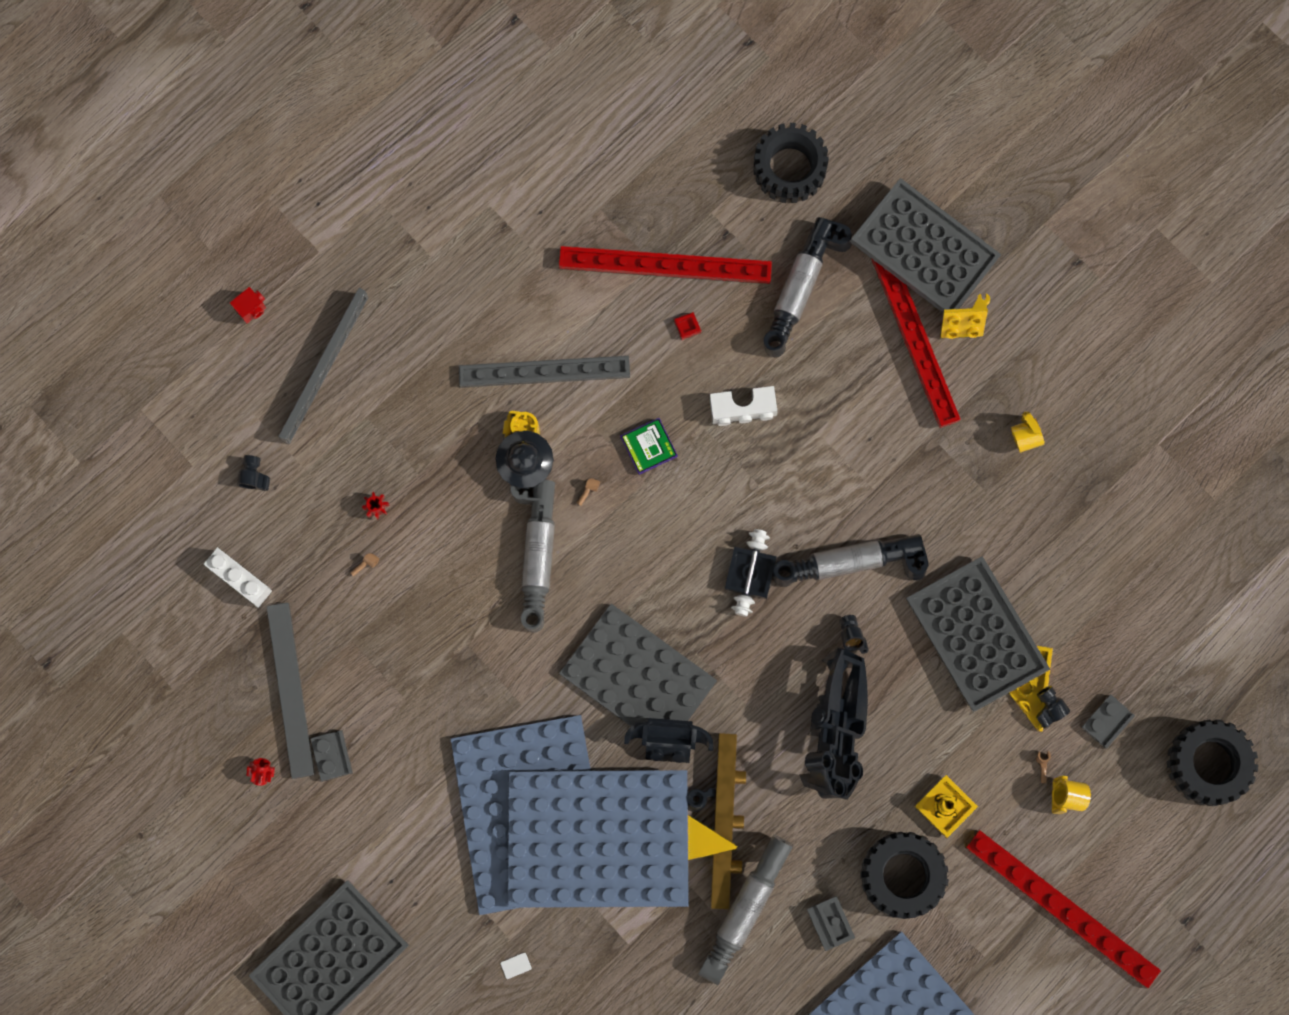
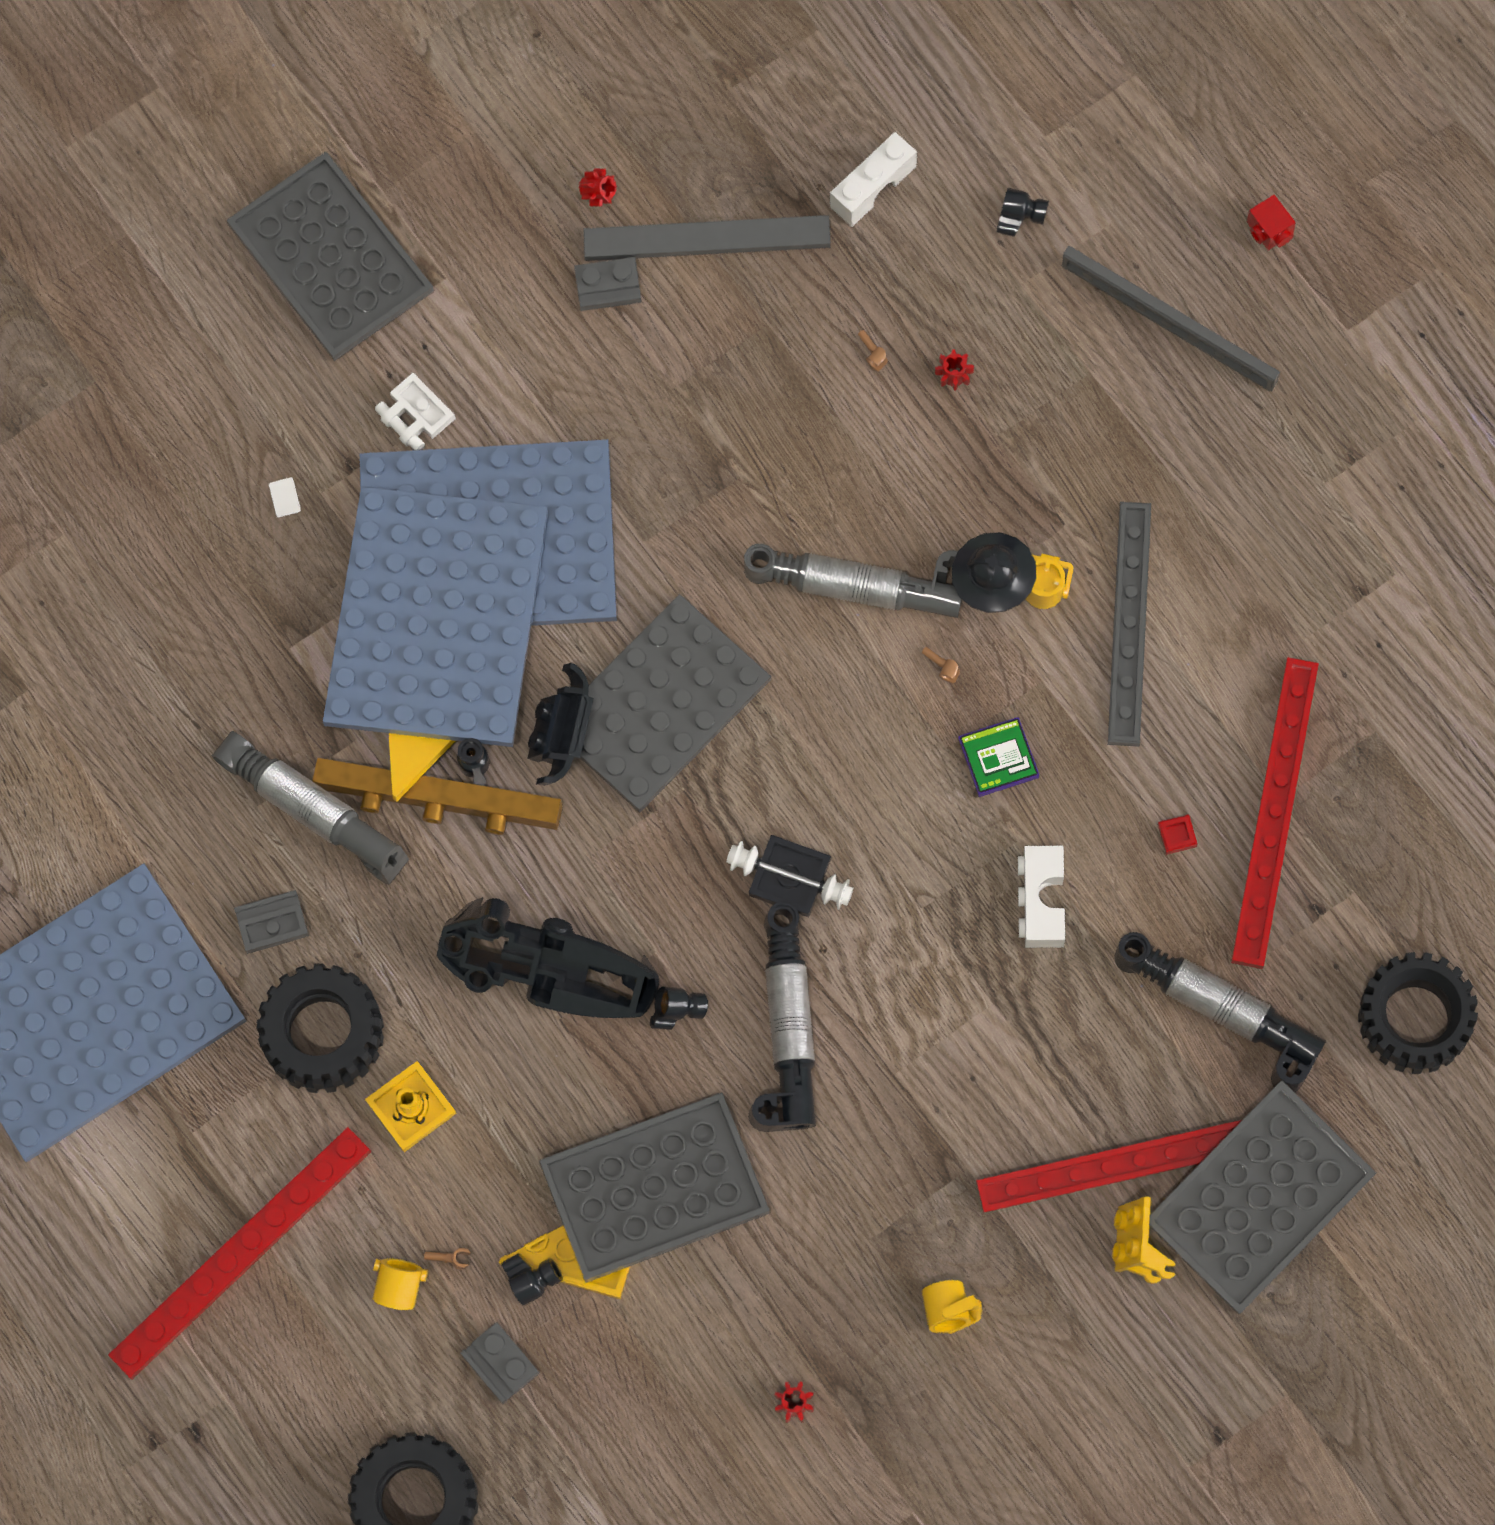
camera: 100 degrees right, 5 degrees down
(439, 874) = (421, 405): none -> white plate
(1109, 523) = (798, 1410): none -> red gear

